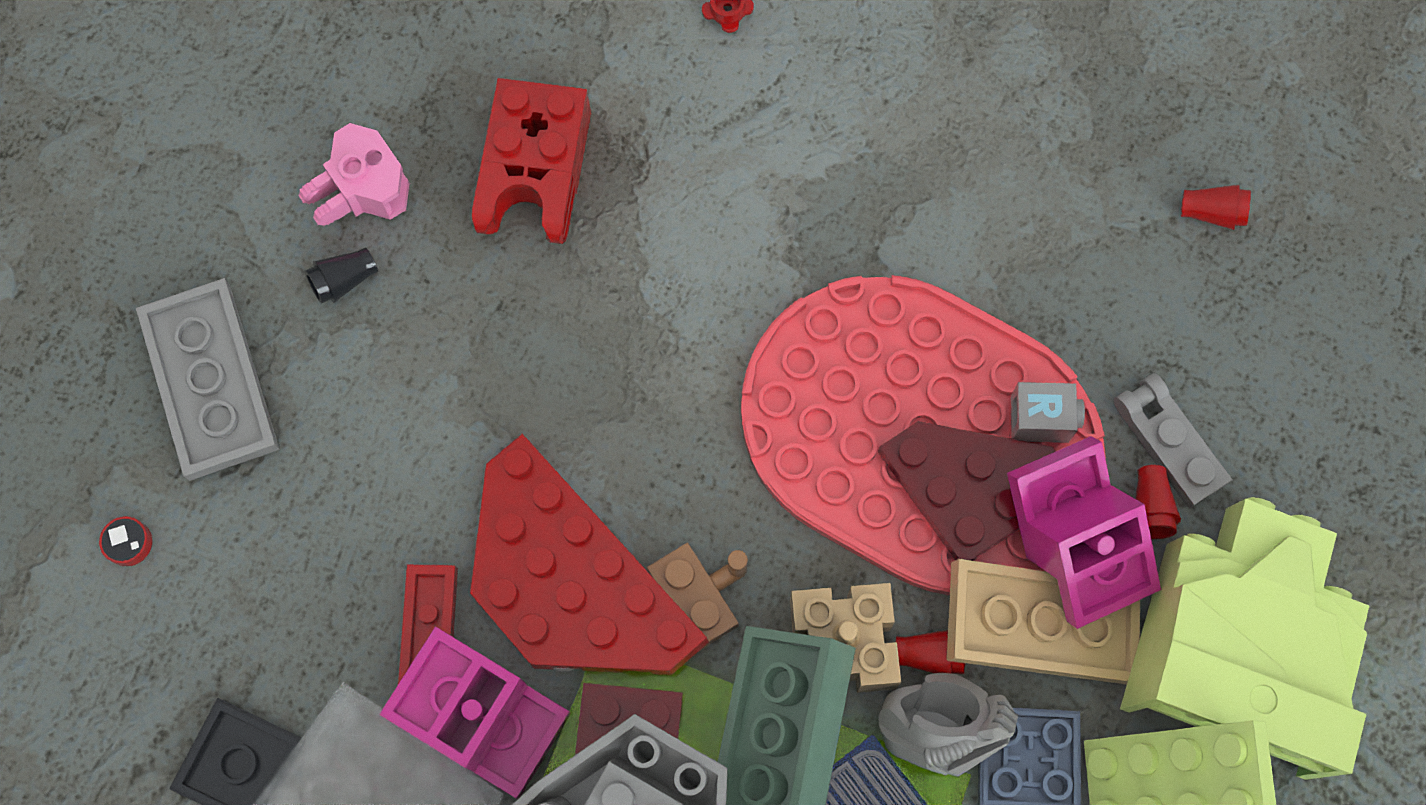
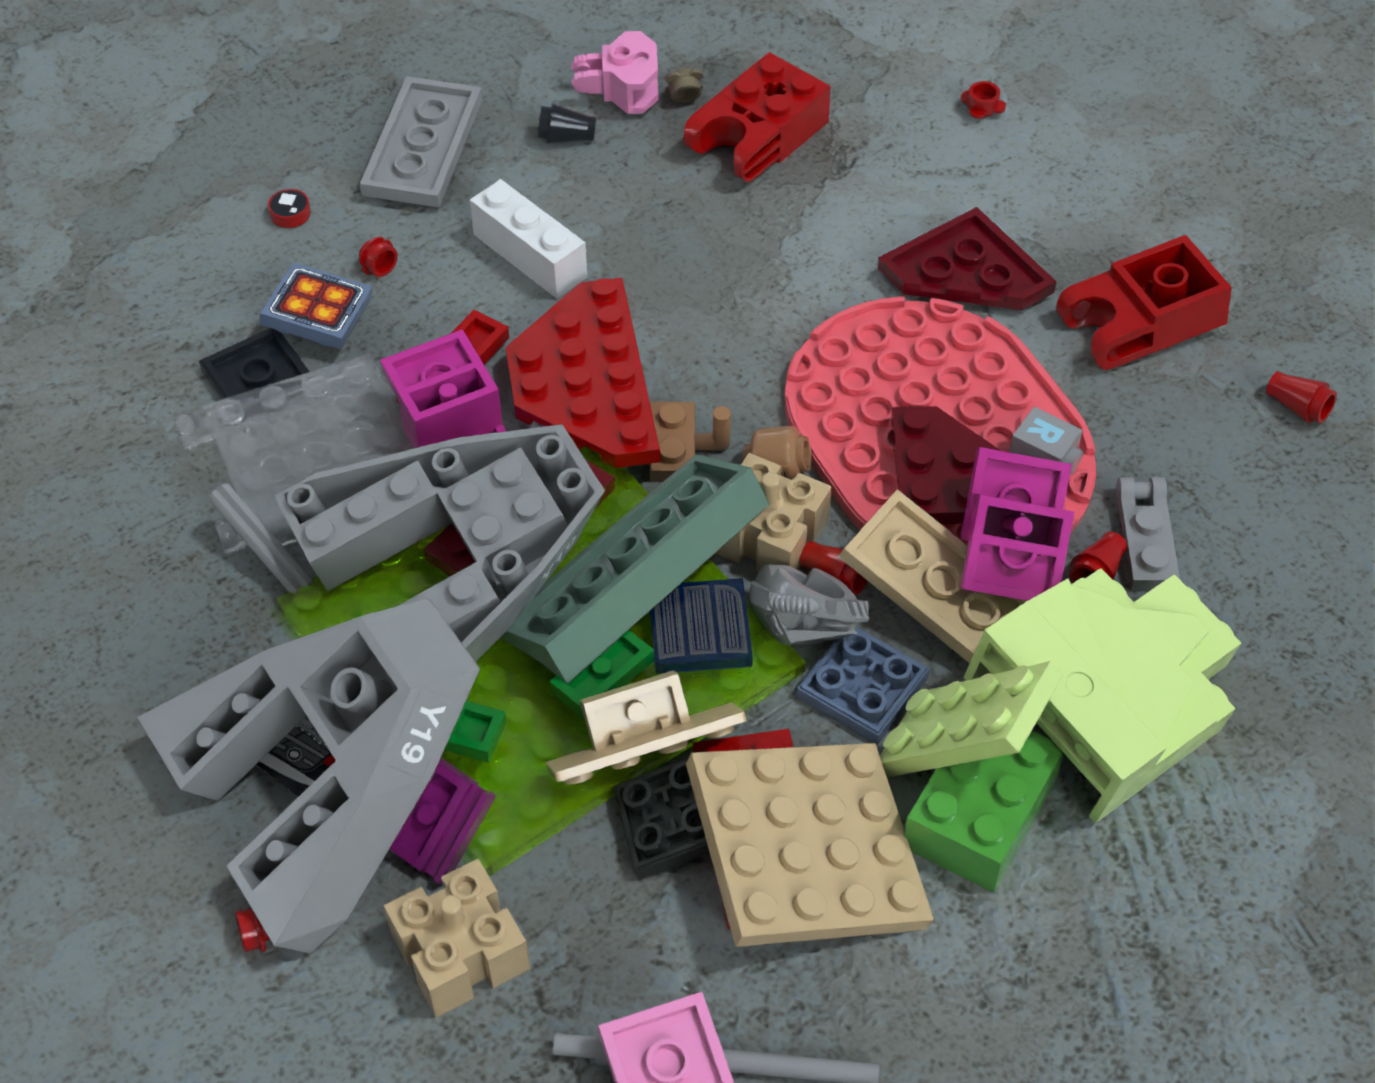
camera: 30 degrees right, 20 degrees down
(245, 656) = (316, 305): none -> tile
(262, 552) = (378, 257): none -> red plate
(402, 444) = (529, 238): none -> white brick
(427, 154) = (684, 84): none -> dark tan plate
(805, 560) = (782, 446): none -> medium nougat head
(837, 224) = (968, 264): none -> dark red plate
(1023, 190) = (1148, 302): none -> red brick

